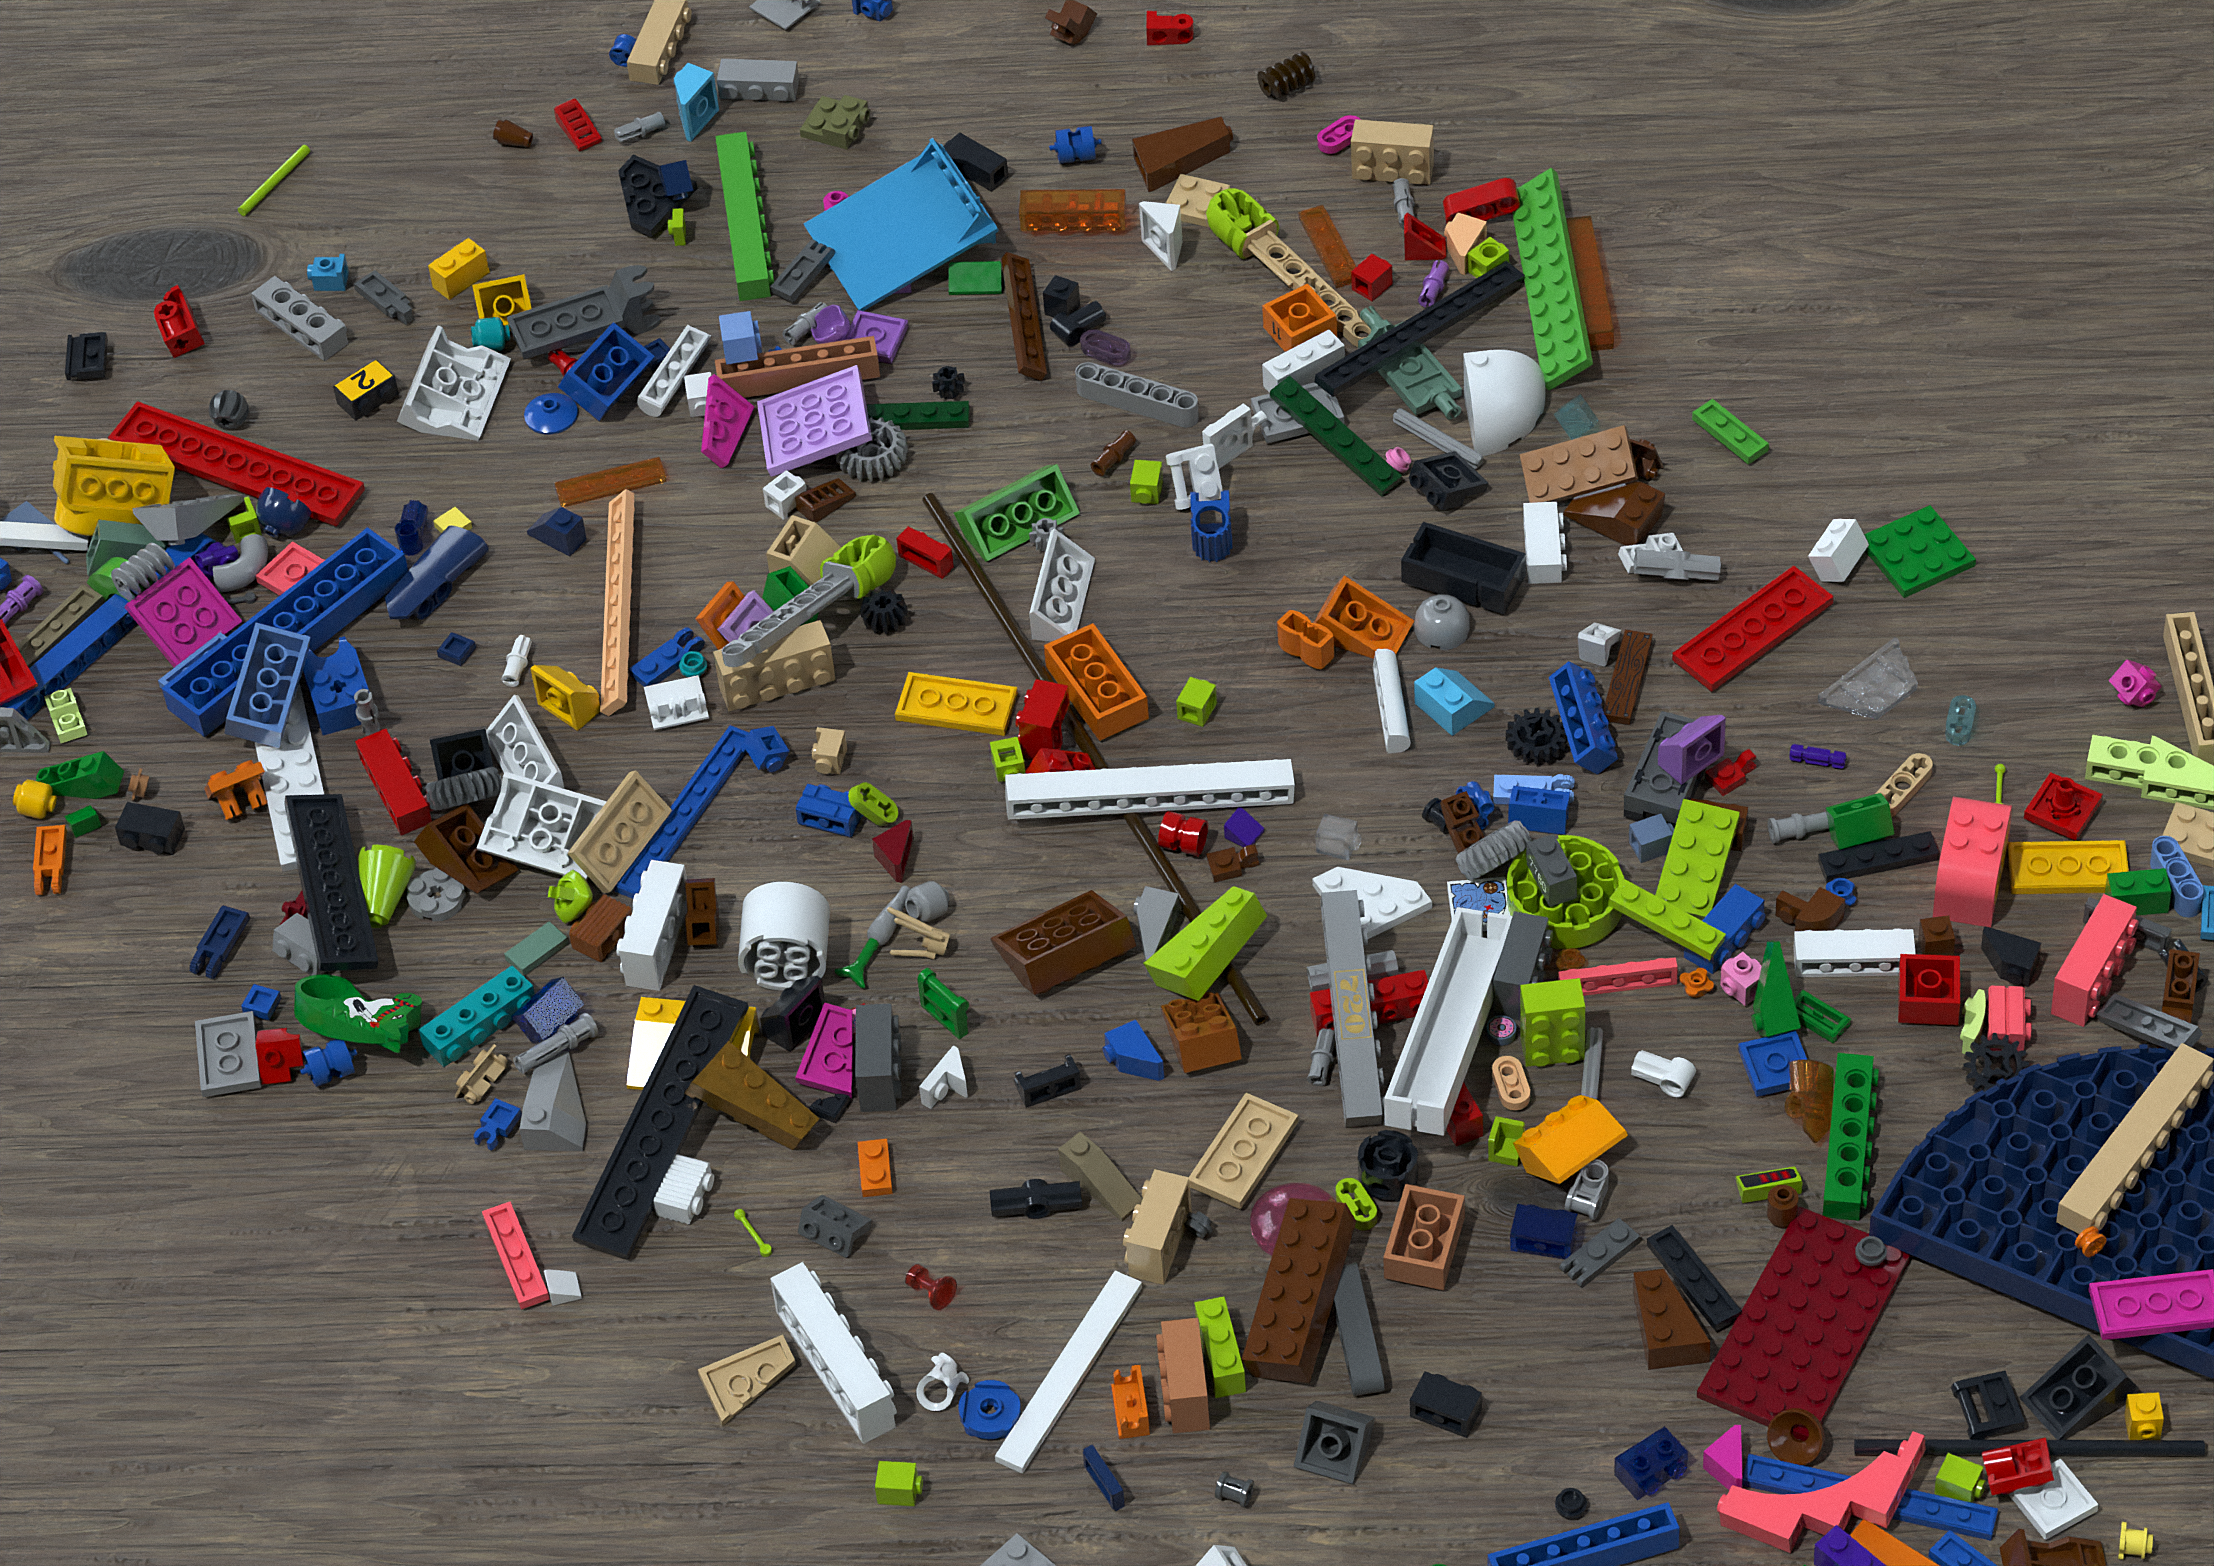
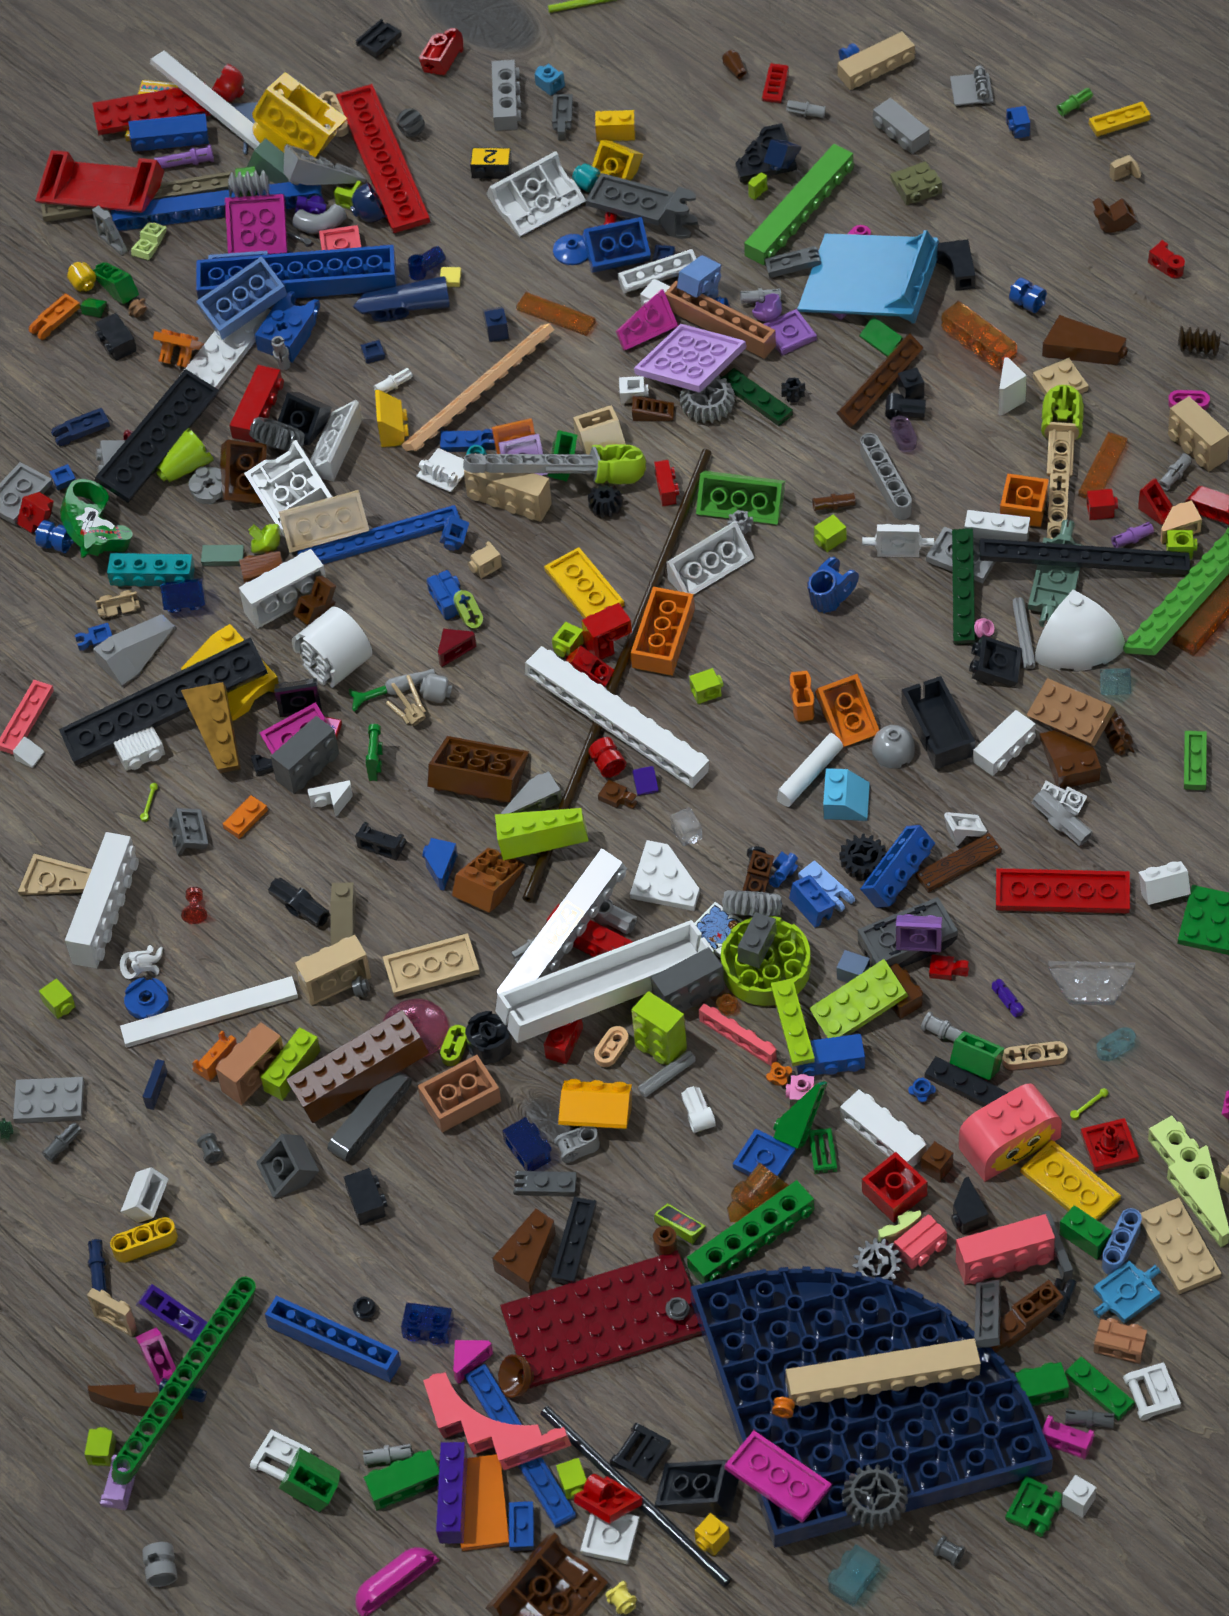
camera: 45 degrees right, 5 degrees up
(566, 1038) = (177, 617): light grey pin -> none
(695, 98) = (846, 113): medium azure slope -> none
(1203, 474) = (861, 549): white plate -> none
(1501, 1140) = (565, 1071): lime panel -> none
(1819, 914) = (888, 1092): reddish brown brick -> none

